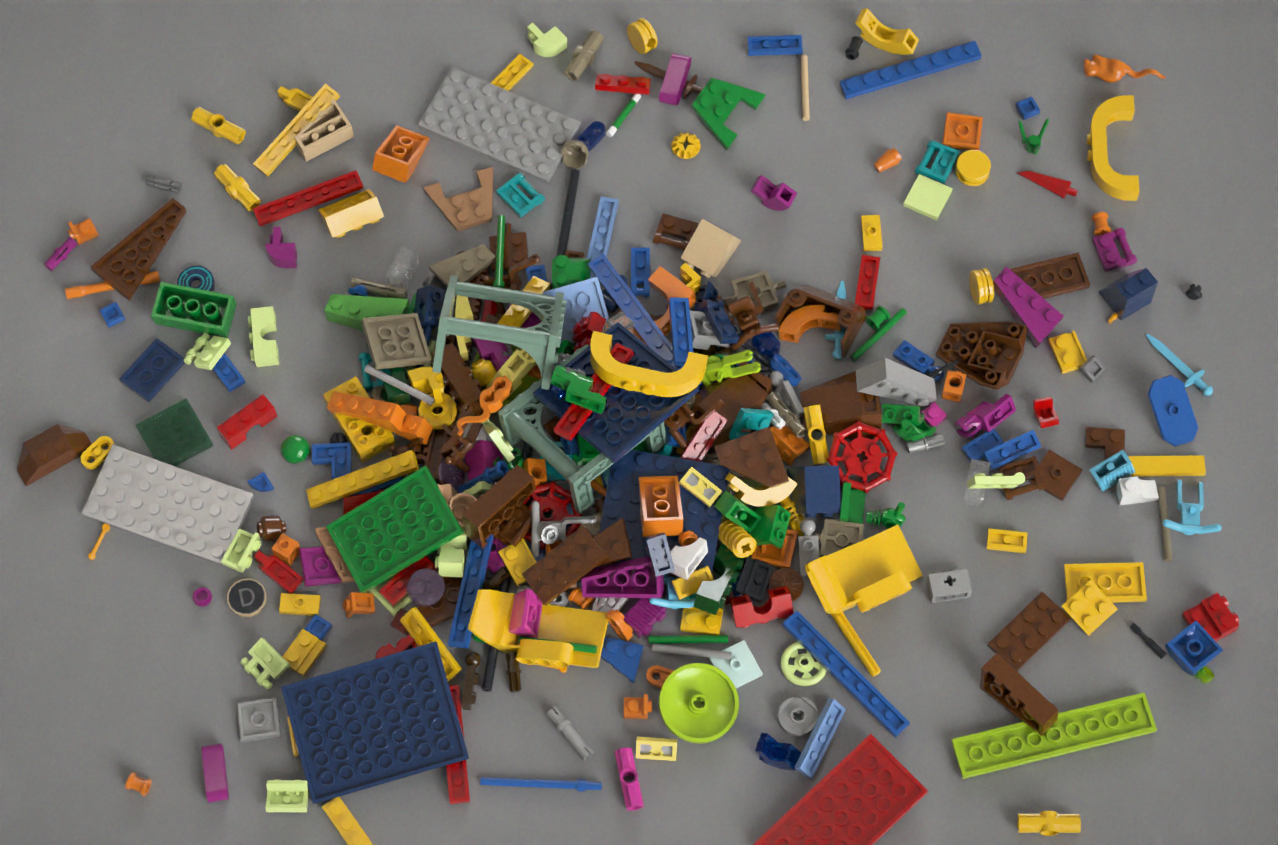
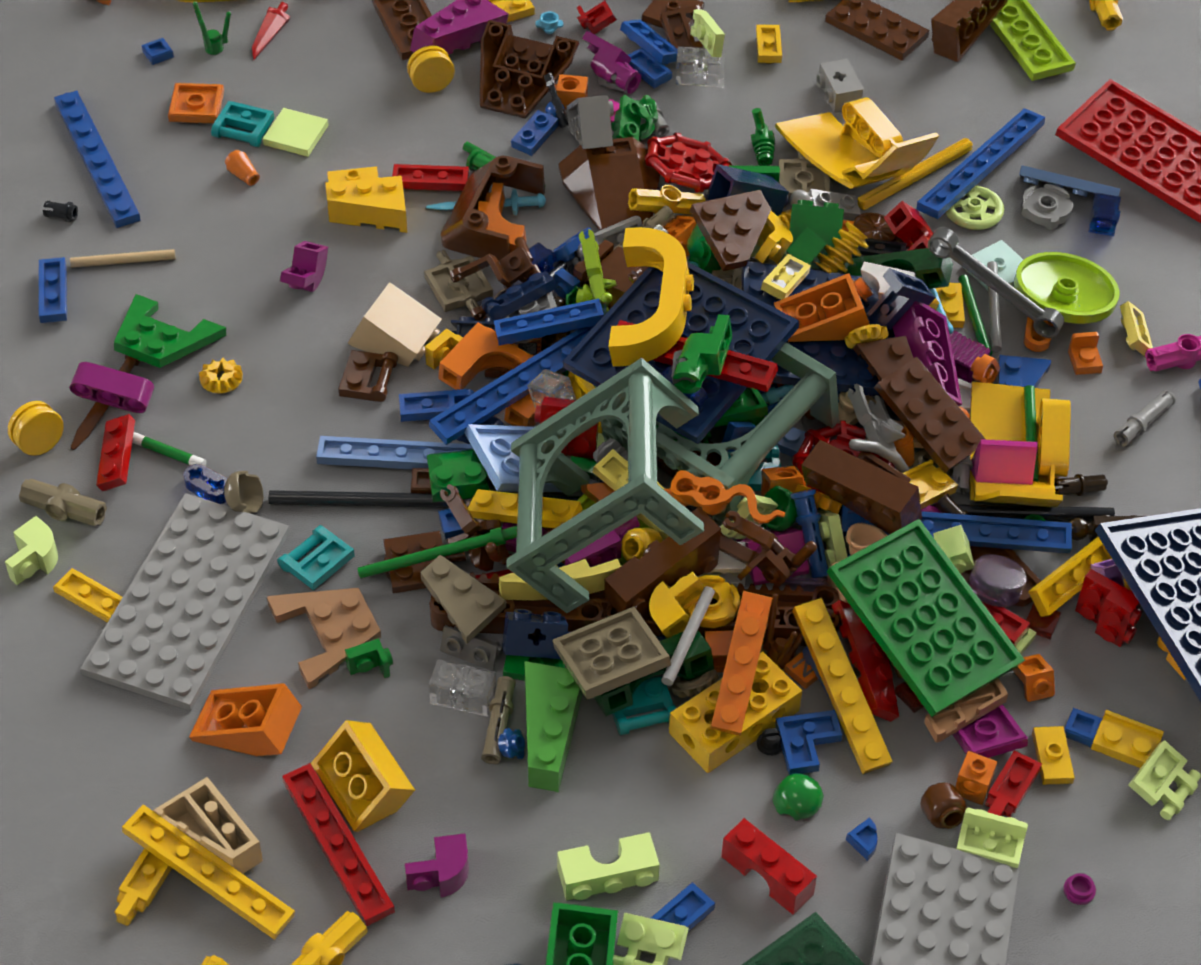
camera: 100 degrees left, 15 degrees down
(247, 597) = (1062, 827): black tile -> none
(435, 224) = (367, 656): none -> green bracket
(632, 528) = (865, 334): none -> yellow gear
(708, 598) = (995, 282): none -> dark grey piece
(839, 240) = (368, 202): none -> yellow wedge
(885, 38) = (49, 173): yellow arch -> none
(973, 167) = (252, 88): yellow head -> none
(1044, 375) = (549, 22): none -> medium azure plate

